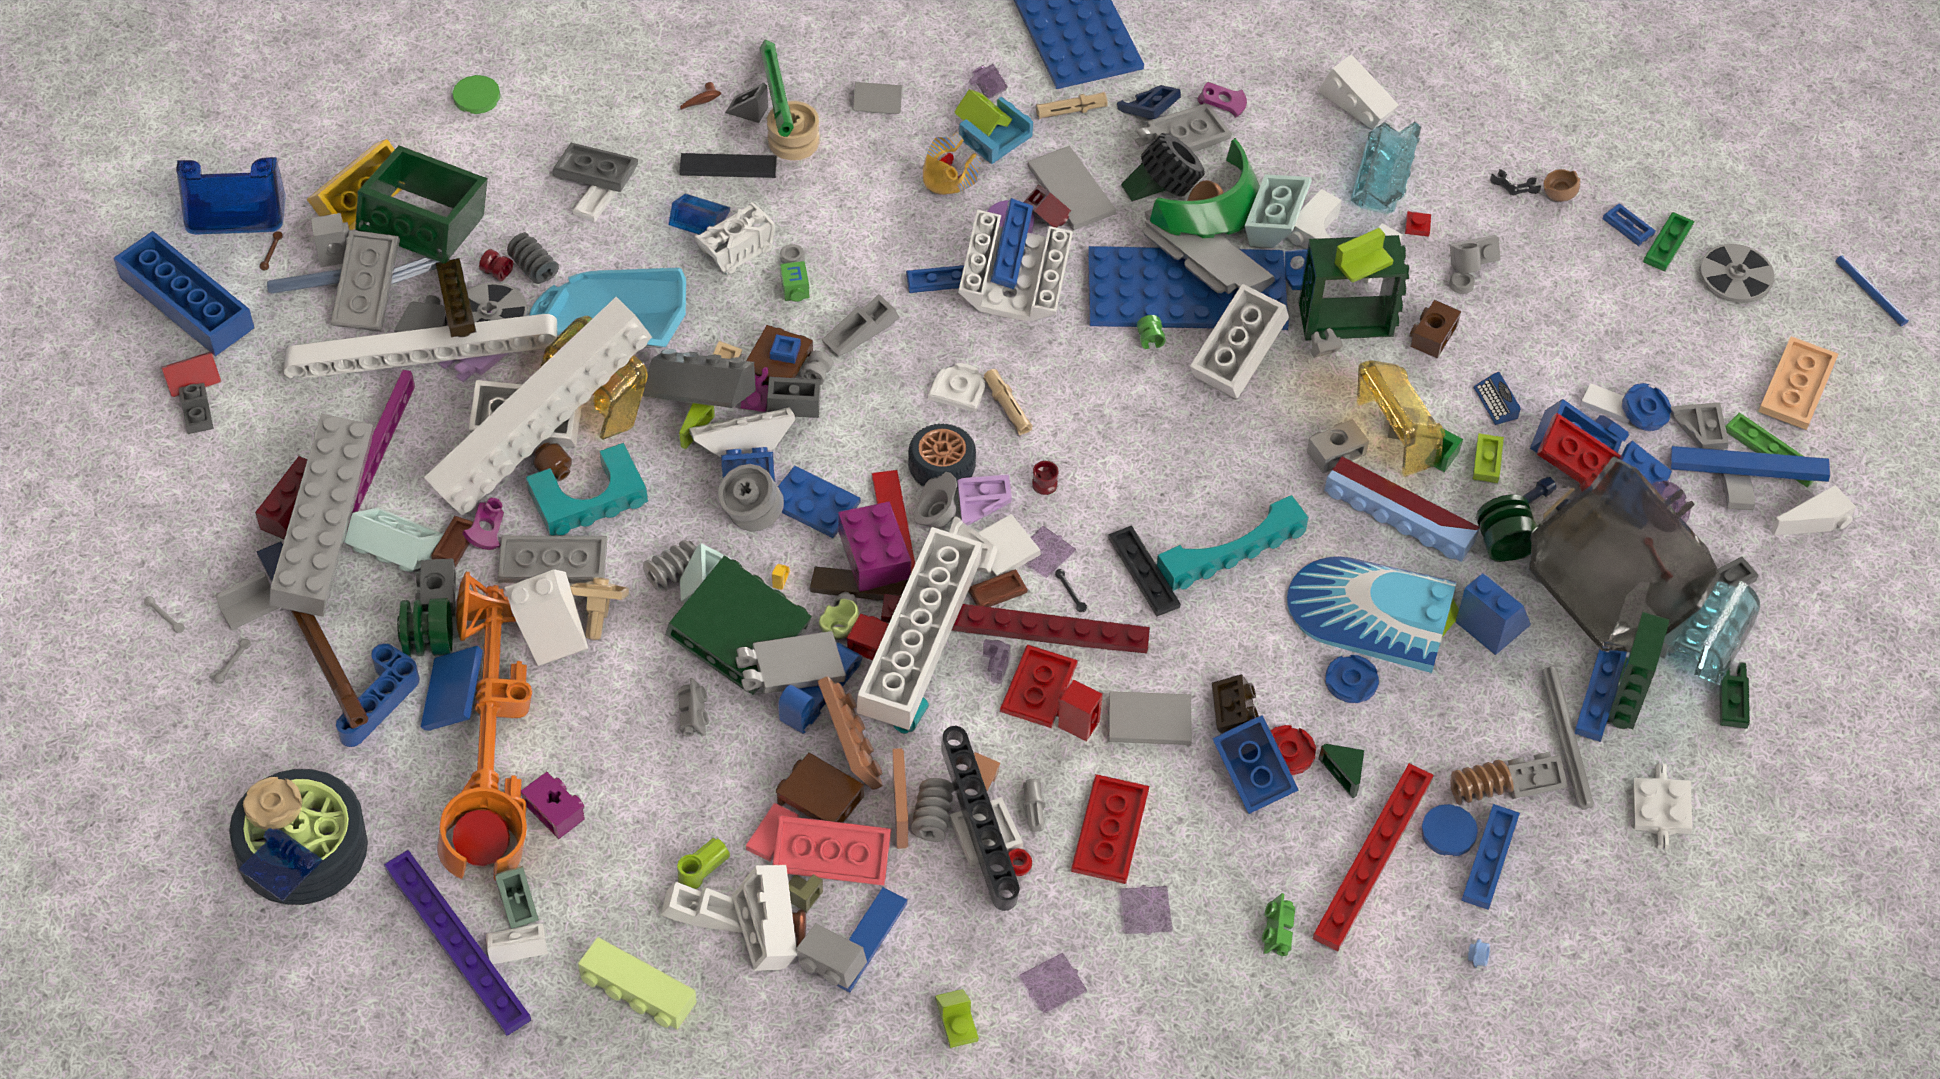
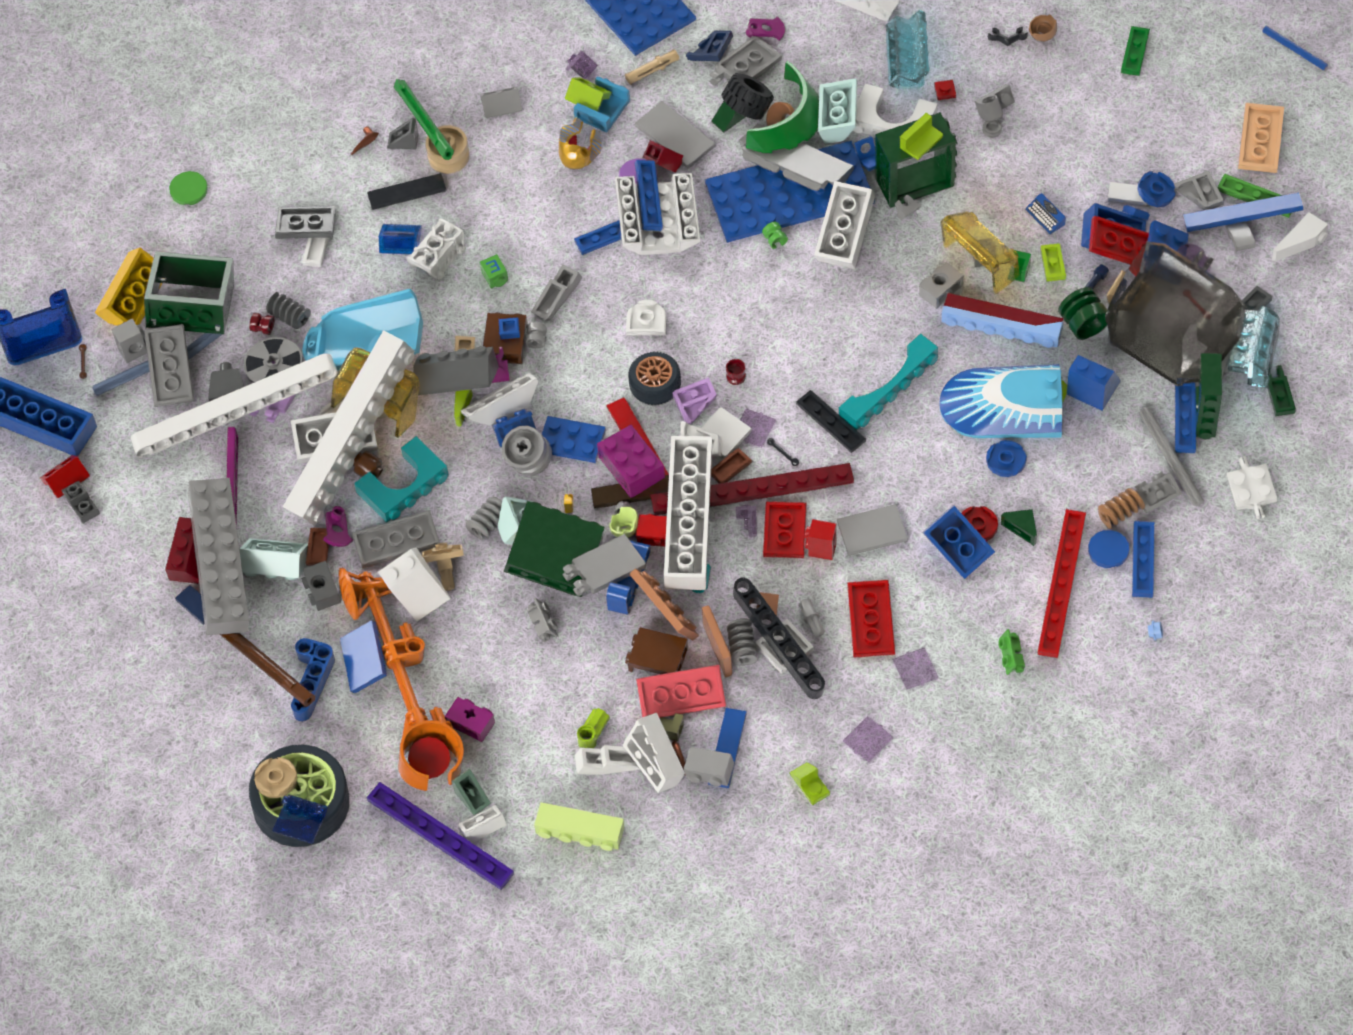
camera: 10 degrees left, 5 degrees up
(150, 602) = (141, 671): light grey hinge -> none
(220, 677) = (195, 669): light grey hinge -> none
(246, 601) = (185, 637): light grey panel -> none
(426, 627) = (327, 617): dark green wheel -> none
(455, 298) = (246, 360): dark brown plate -> none
(763, 840) = (630, 697): coral tile -> none
(792, 253) = (483, 250): light grey tile -> none
(799, 394) = (529, 361): dark grey brick -> none
(936, 502) = (663, 413): light grey piece -> none
(1003, 394) = (681, 315): tan pin -> none
(1021, 855) = (818, 657): red plate -> none
(1233, 702) = (928, 501): dark brown bracket -> none
(1435, 328) = (984, 171): reddish brown brick -> none
(1626, 226) = (1101, 48): blue tile -> none
(1749, 285) = (1206, 64): light grey piece -> none

